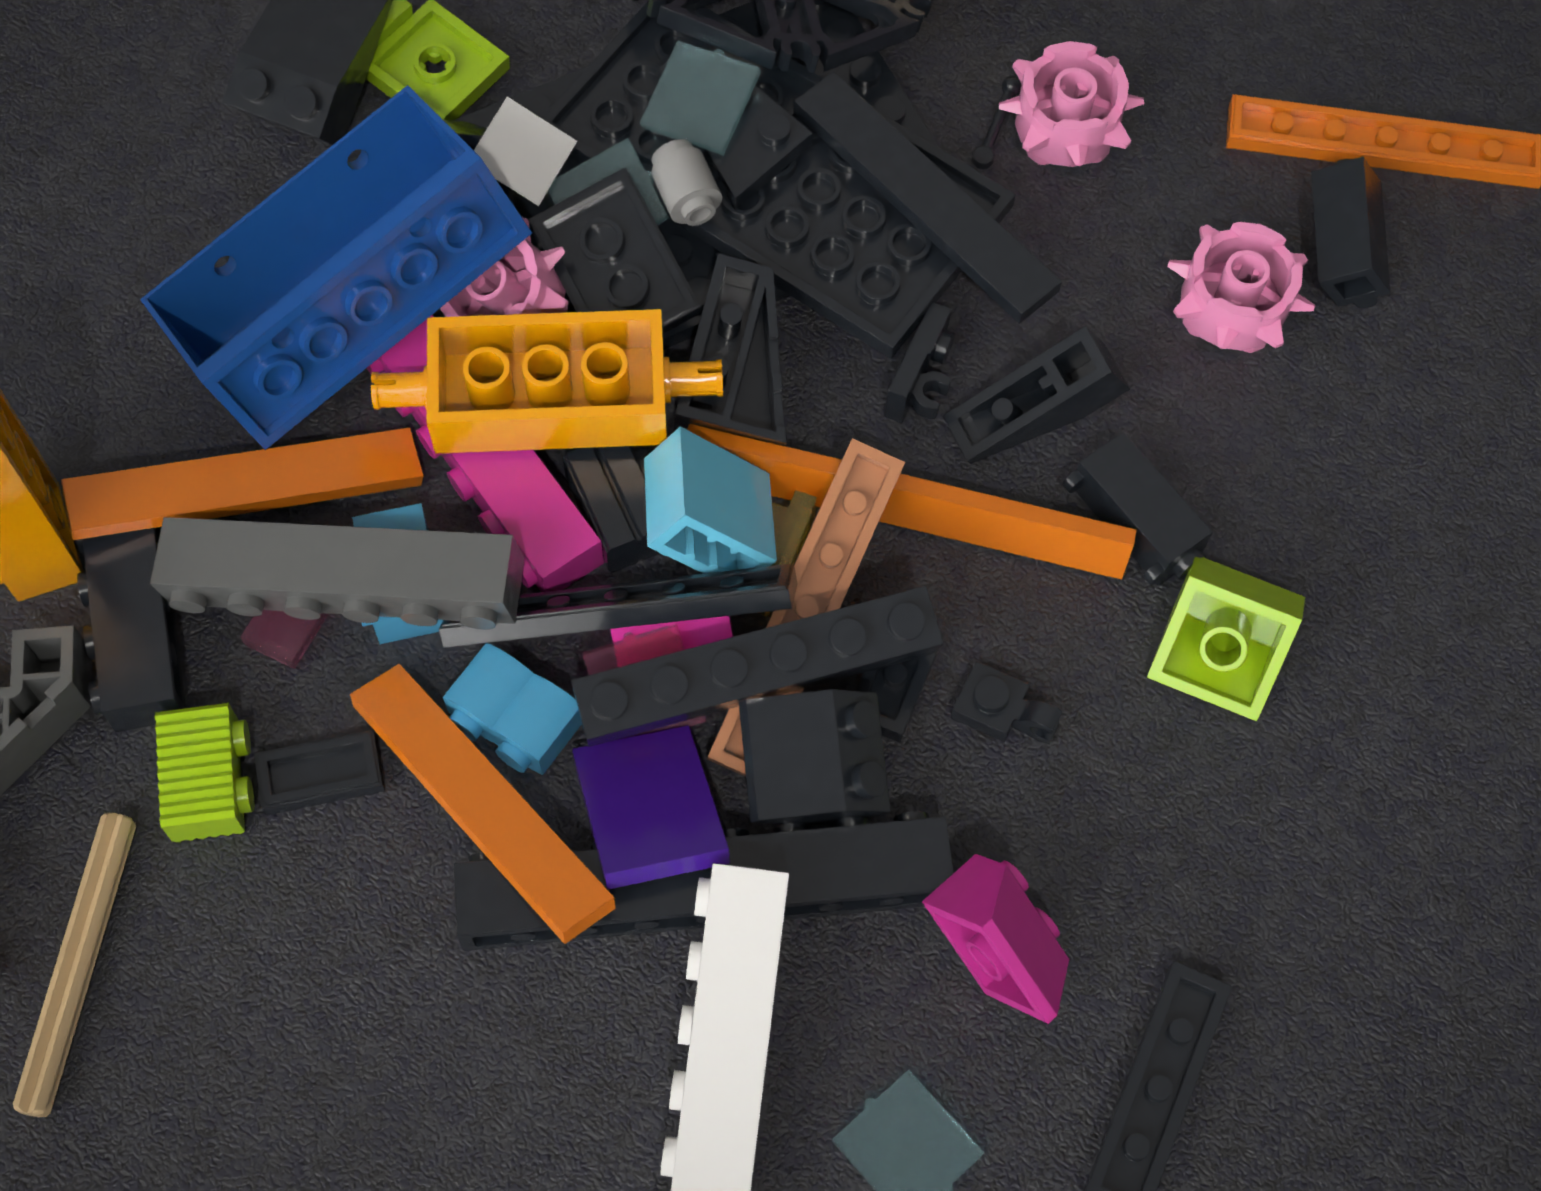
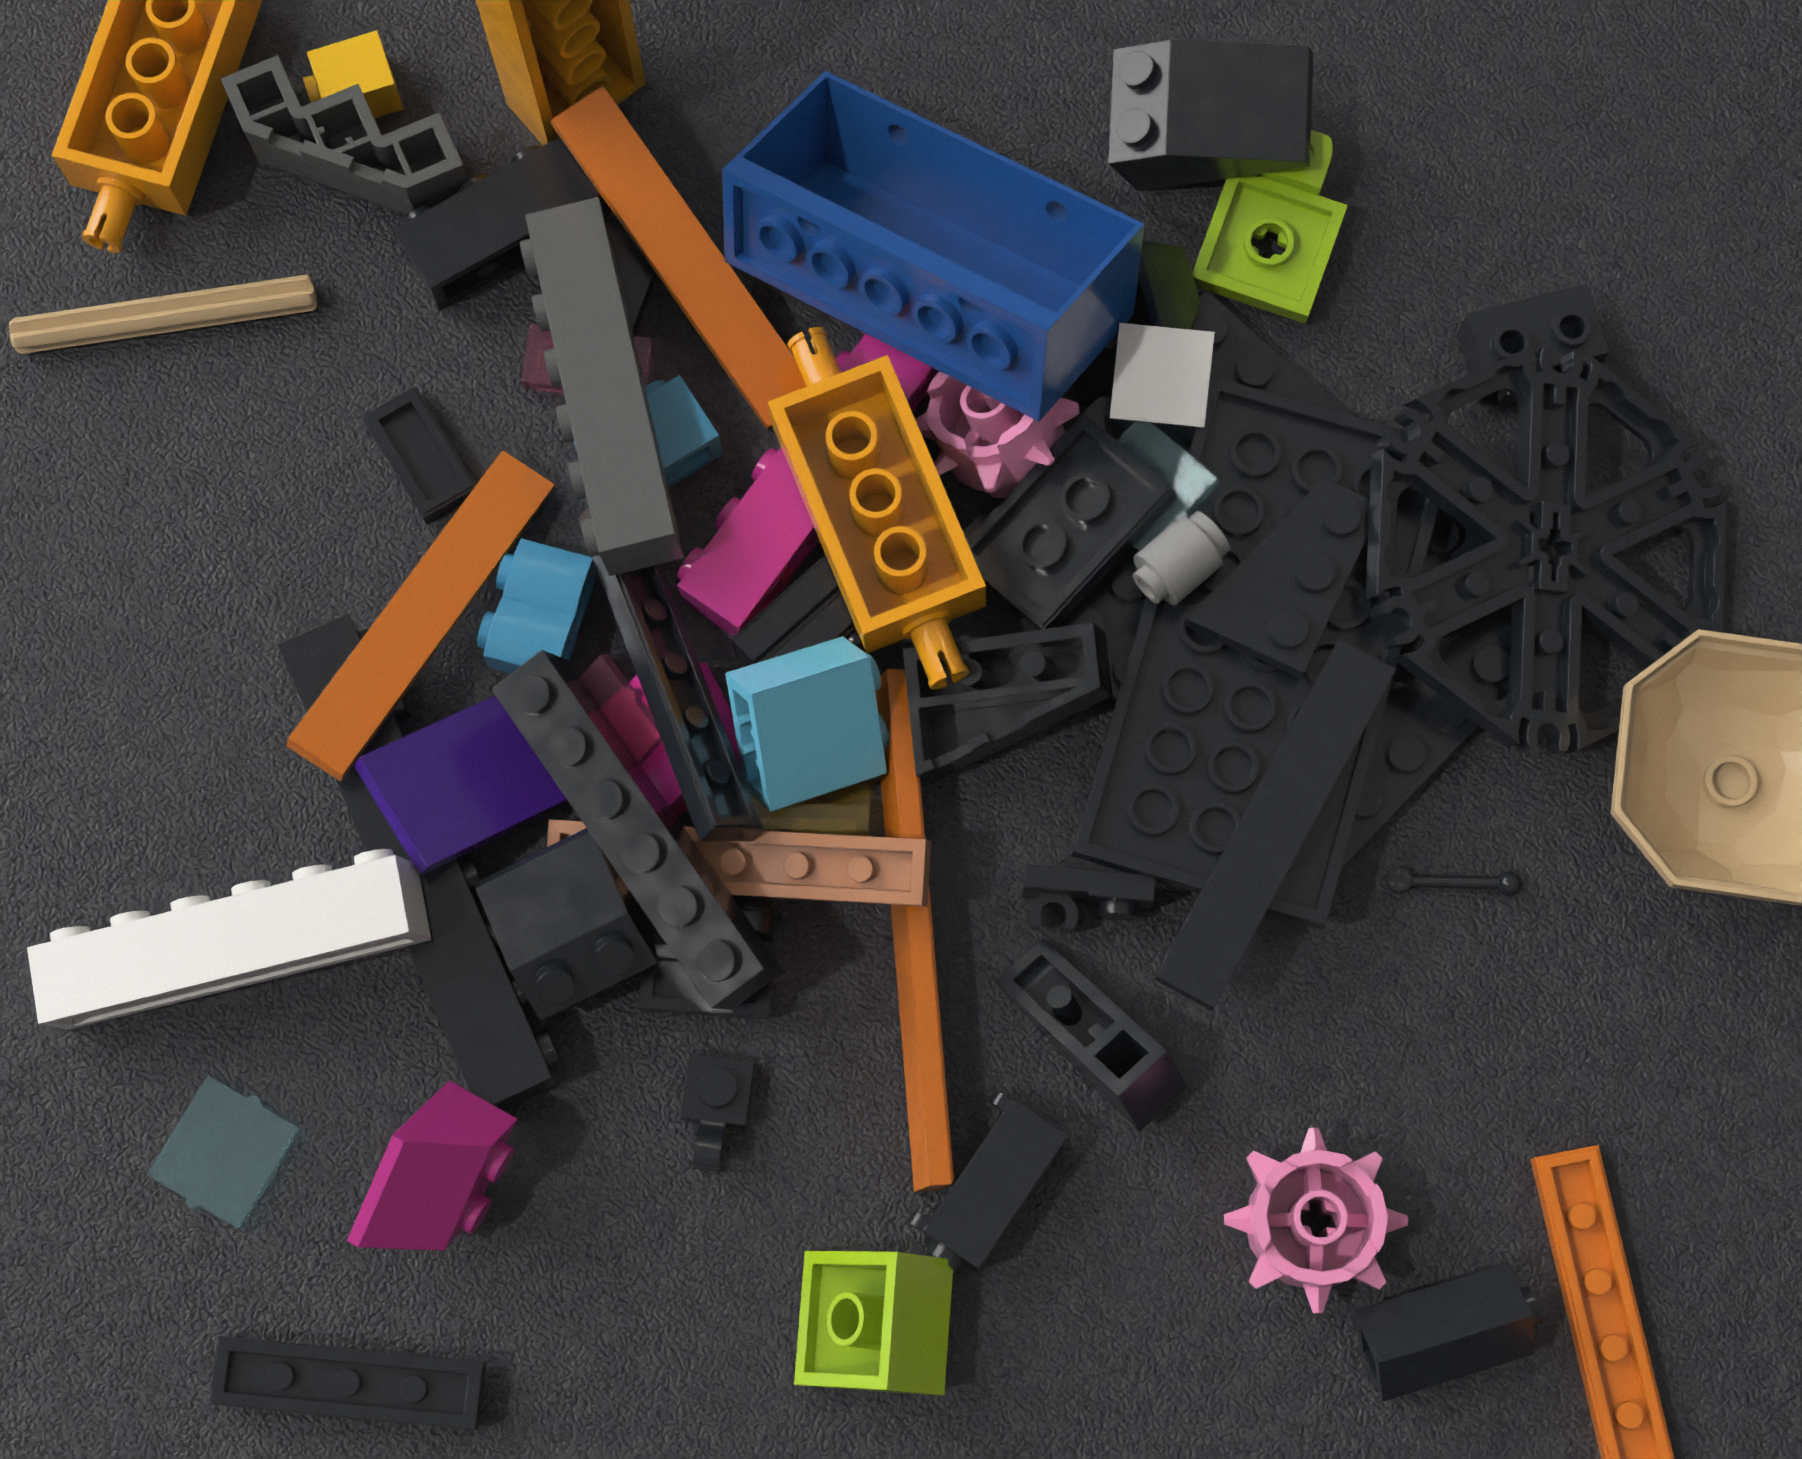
camera: 75 degrees right, 10 degrees up
(201, 772) = (377, 346): lime brick -> none
(700, 97) = (1293, 535): clear light blue piece -> none
(1071, 105) = (1501, 919): bright pink brick -> none

